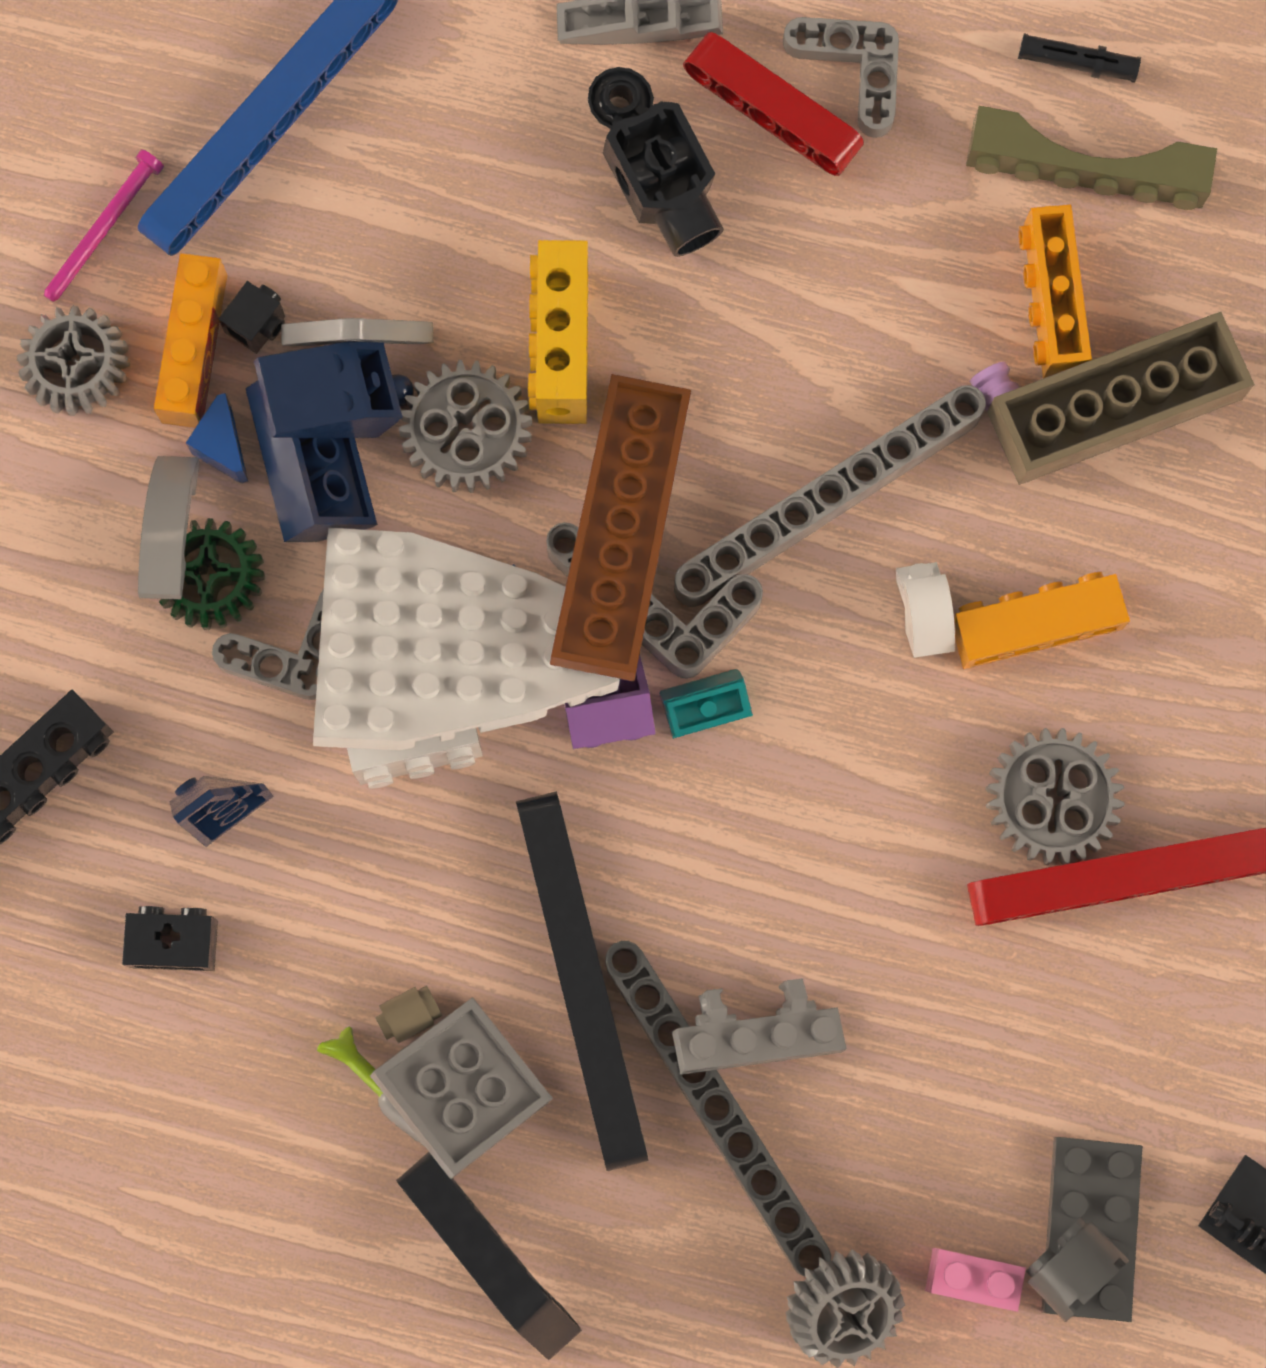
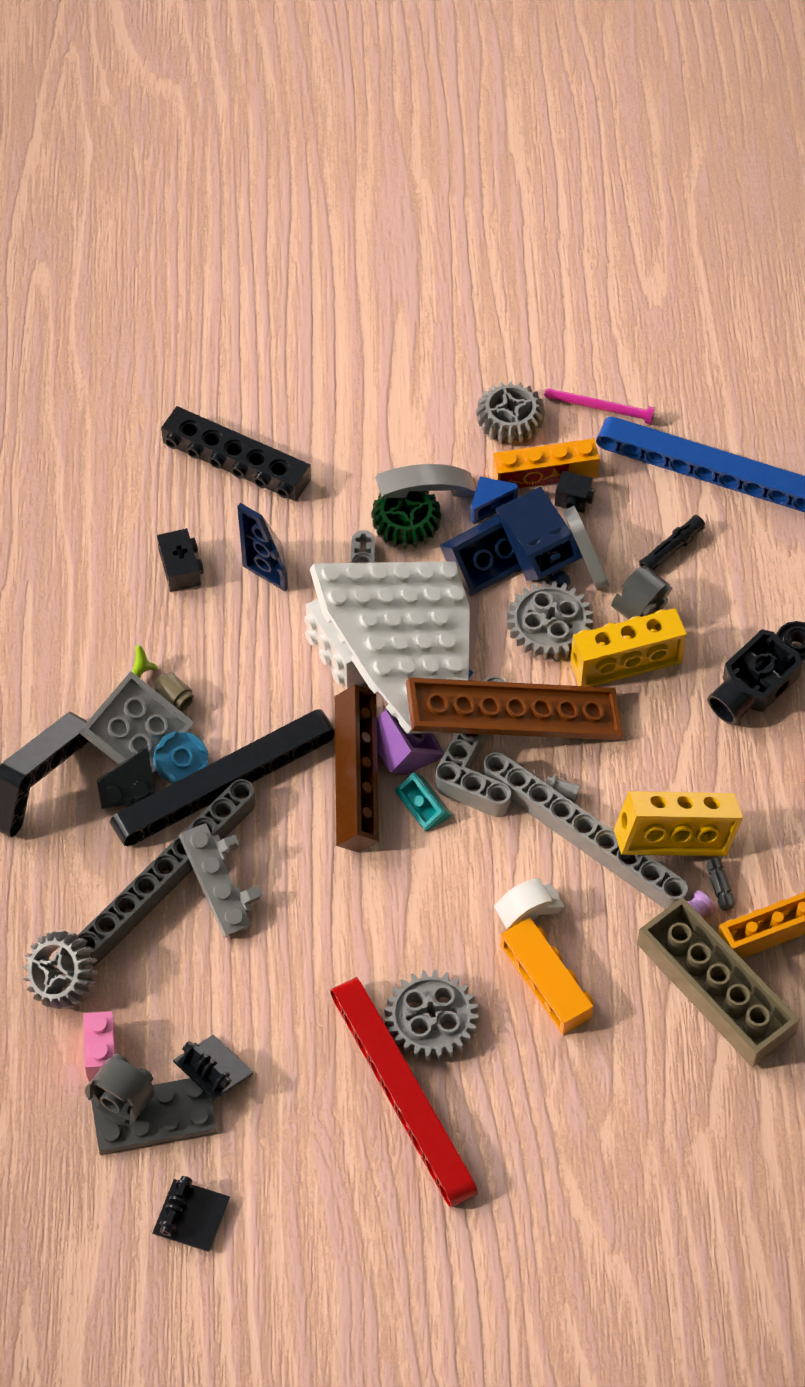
camera: 75 degrees right, 20 degrees down
(370, 172) = (680, 537): none -> black pin
(478, 282) = (642, 594): none -> dark grey brick
(529, 1034) = (179, 756): none -> dark azure tile
(551, 1126) = (128, 782): none -> black wing
(639, 781) = (356, 769): none -> reddish brown brick
(748, 502) = (565, 788): none -> light grey pin
(880, 362) = (677, 823): none -> yellow brick
(961, 342) = (720, 884): none -> dark grey axle
(1051, 1124) = (212, 1066): none -> black hinge

